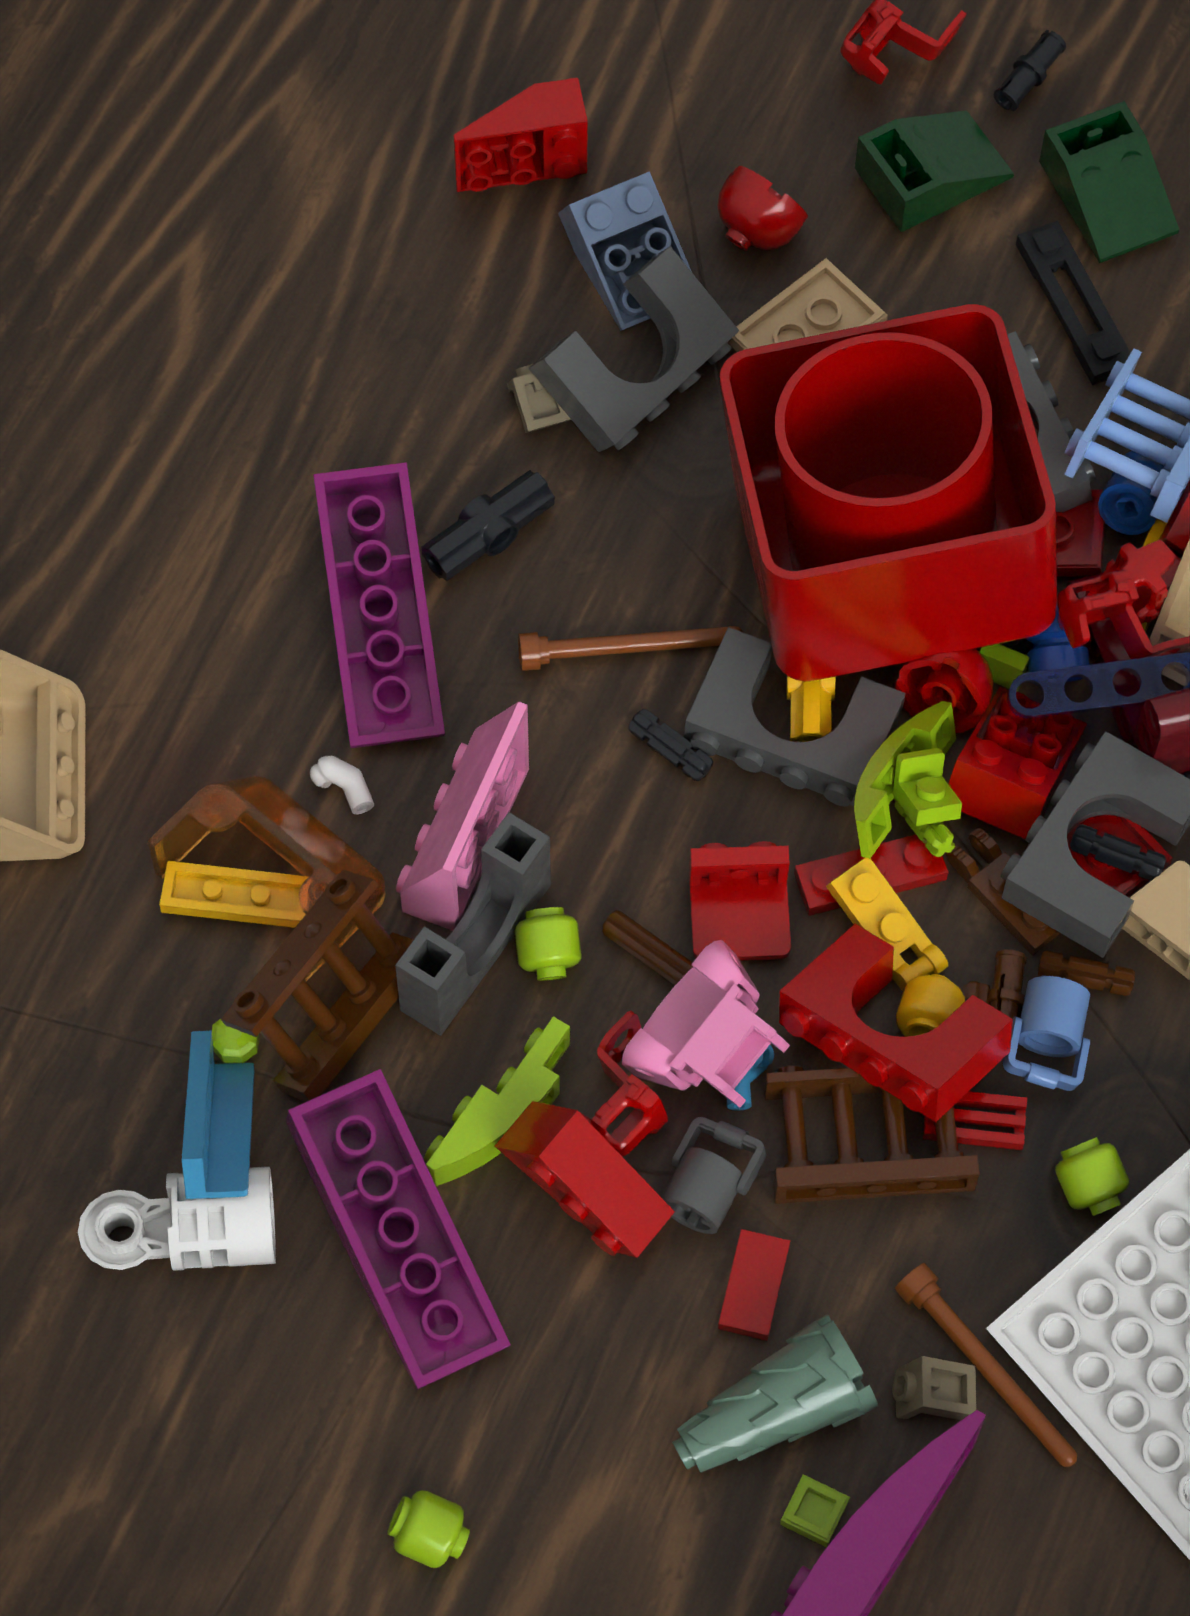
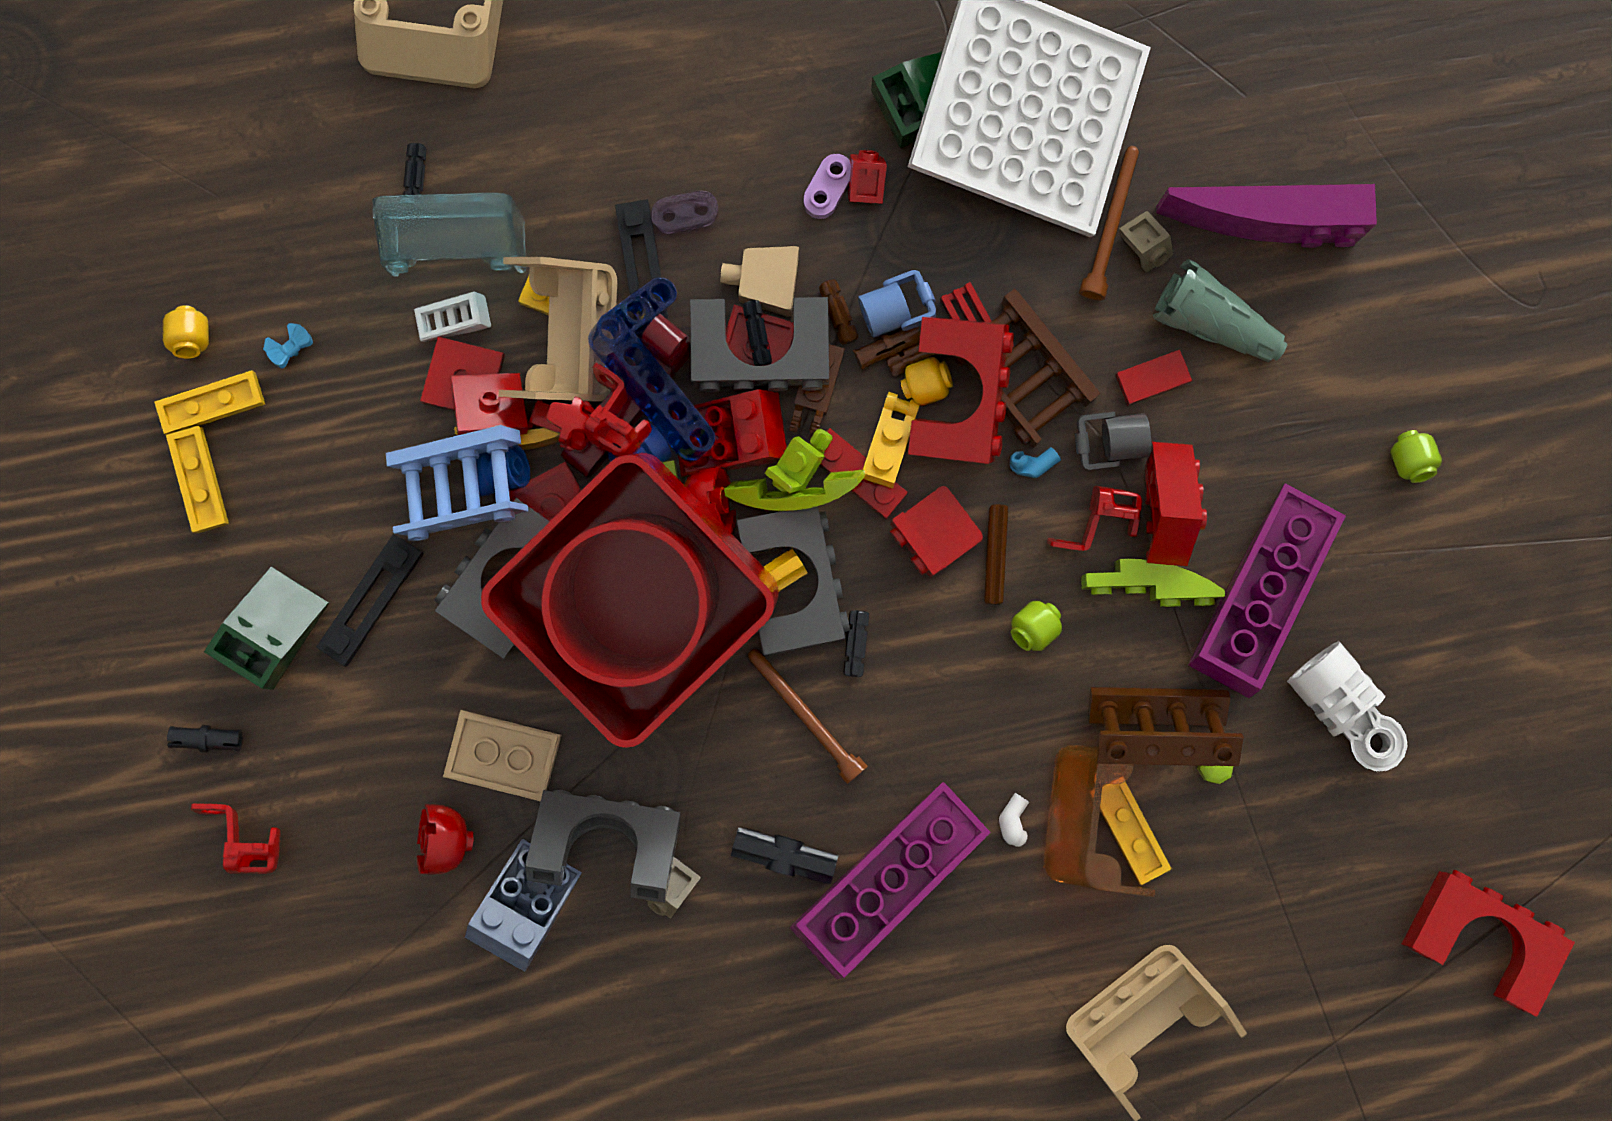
camera: 125 degrees left, 20 degrees up
(216, 1124) = (1292, 727): dark azure panel -> none
(442, 973) = (1070, 668): dark grey arch -> none
(467, 815) = (1001, 724): bright pink slope -> none
(525, 139) = (482, 1025): red slope -> none
(704, 1028) = (1037, 495): bright pink piece -> none
(815, 1510) = (1255, 264): lime tile -> none
(928, 165) = (326, 753): dark green slope -> none
(1092, 1176) = (965, 231): lime head -> none

